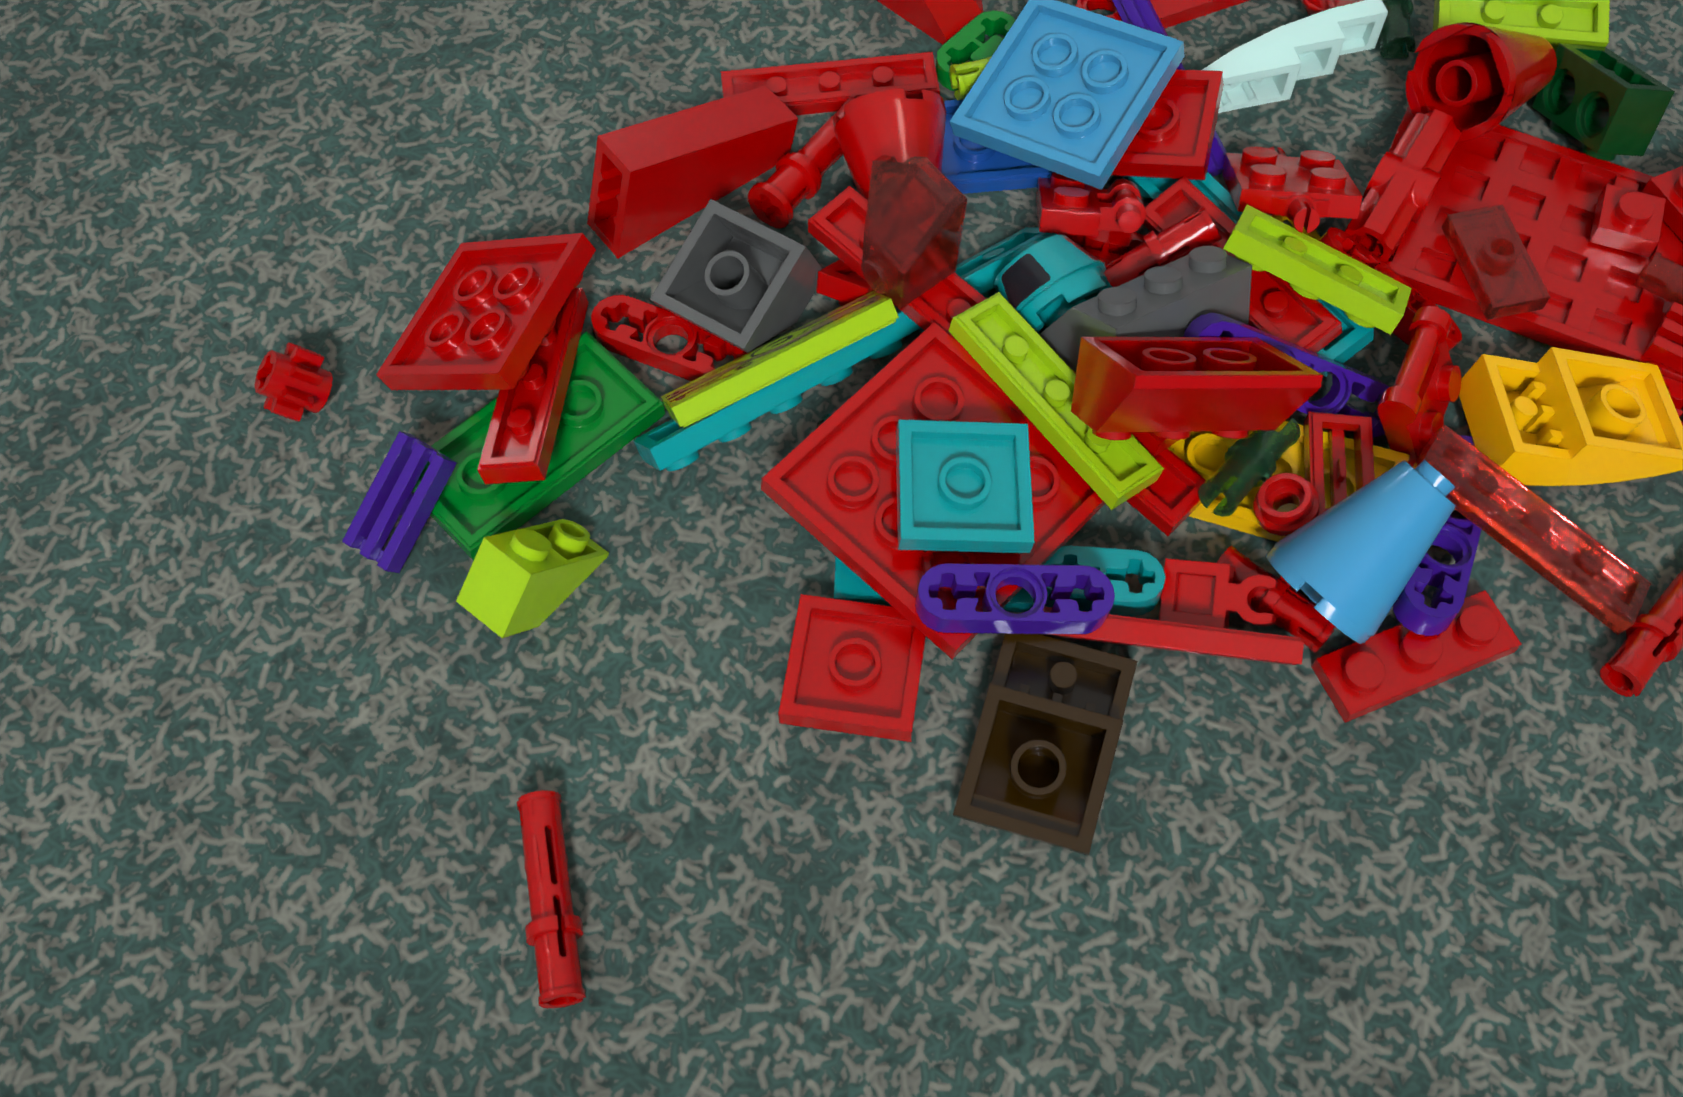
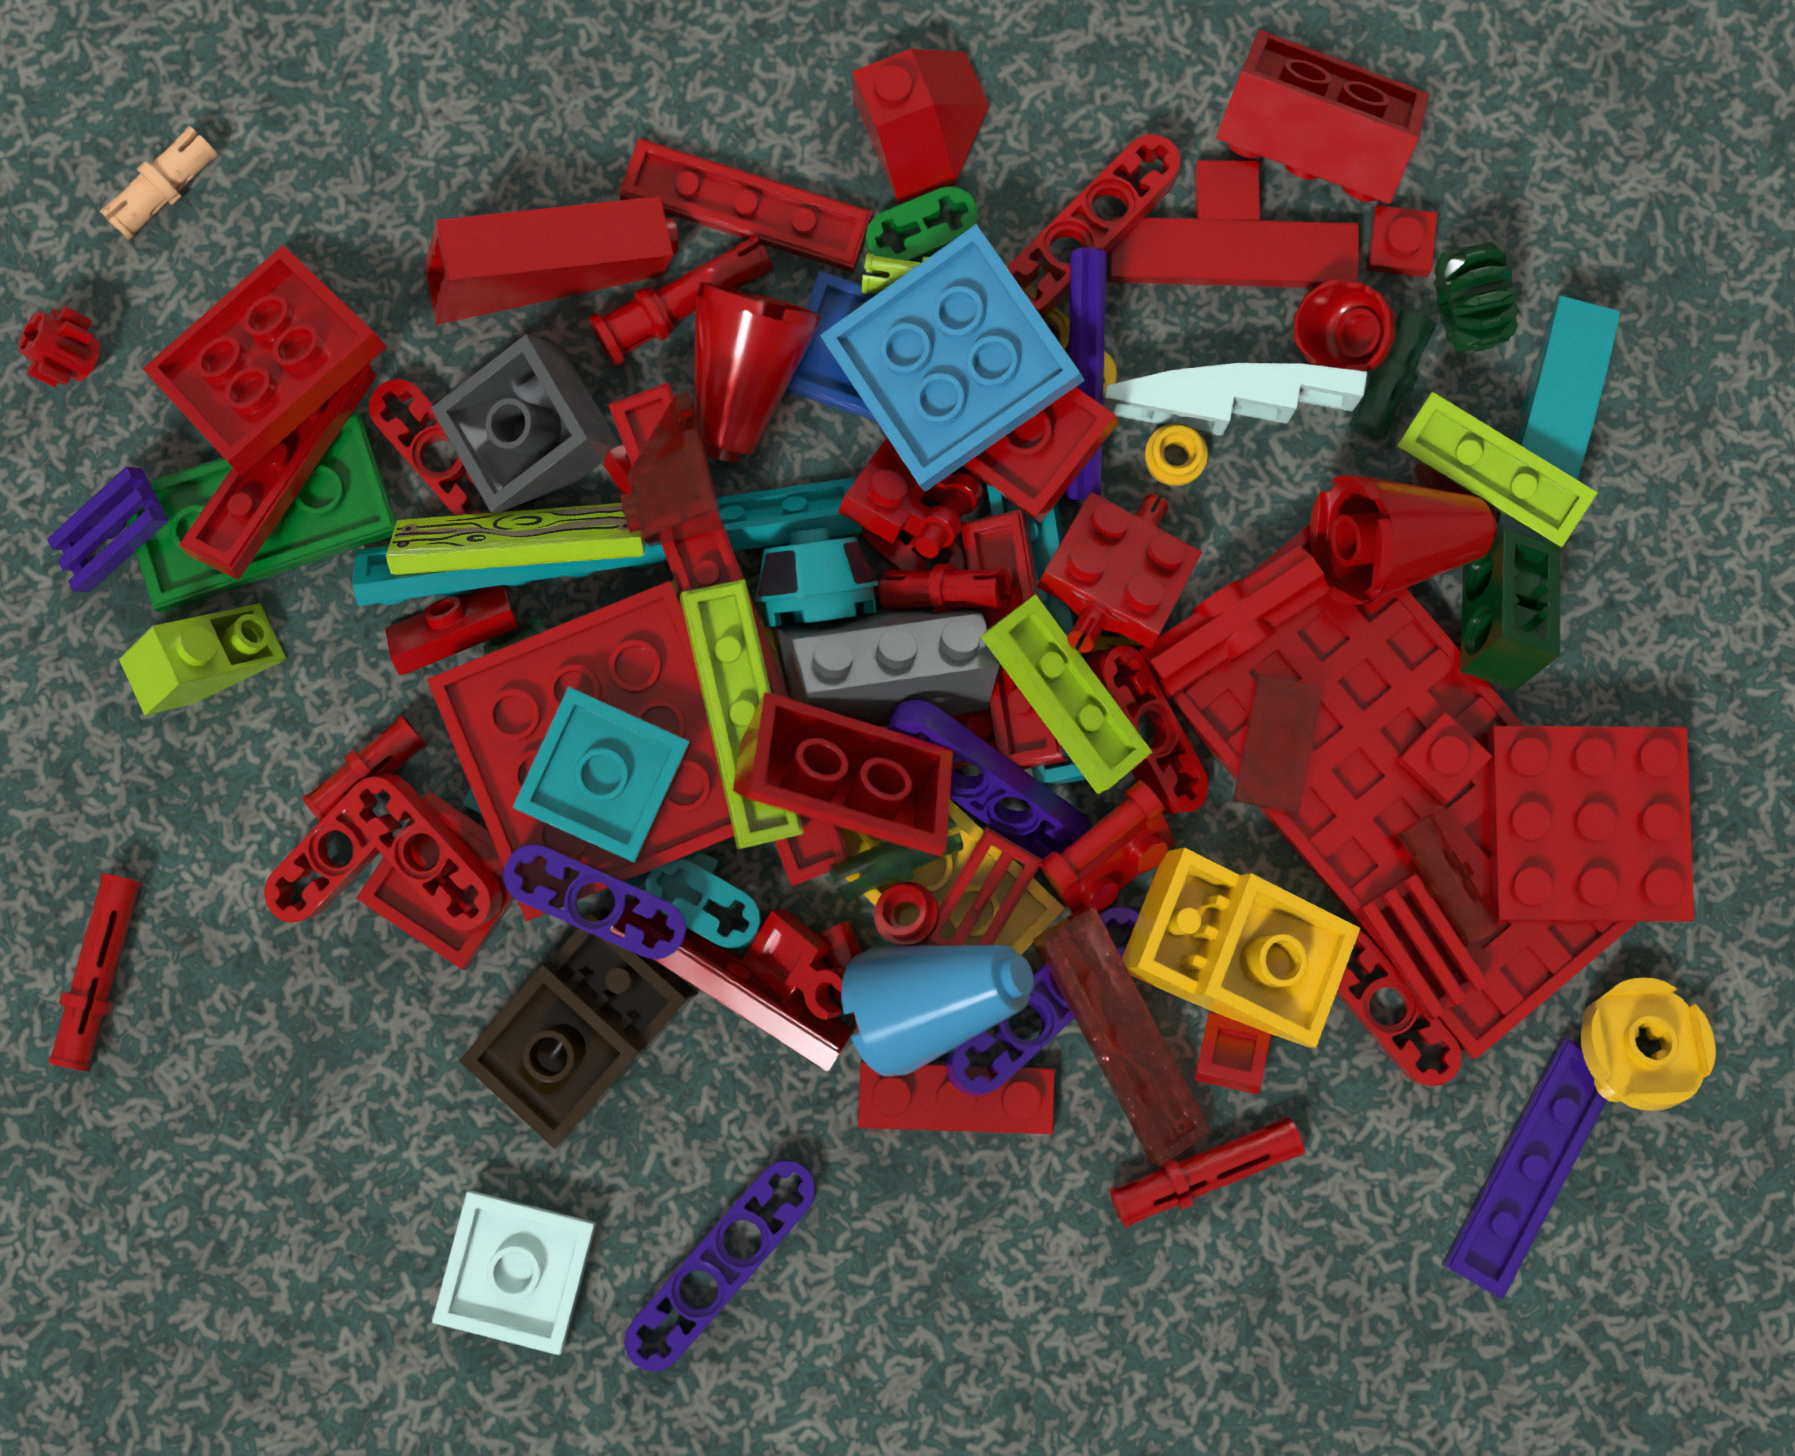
camera: 20 degrees right, 20 degrees up
(331, 242) = (159, 183): none -> light nougat pin
(729, 610) = (379, 757): none -> red pin
(750, 459) = (450, 628): none -> red plate
(769, 649) = (373, 836): none -> red beam
(1113, 997) = (514, 1272): none -> light aqua plate
(1267, 116) = (1184, 437): none -> yellow plate
(1311, 901) = (725, 1268): none -> dark purple beam
(1625, 511) = (1232, 1054): none -> red plate

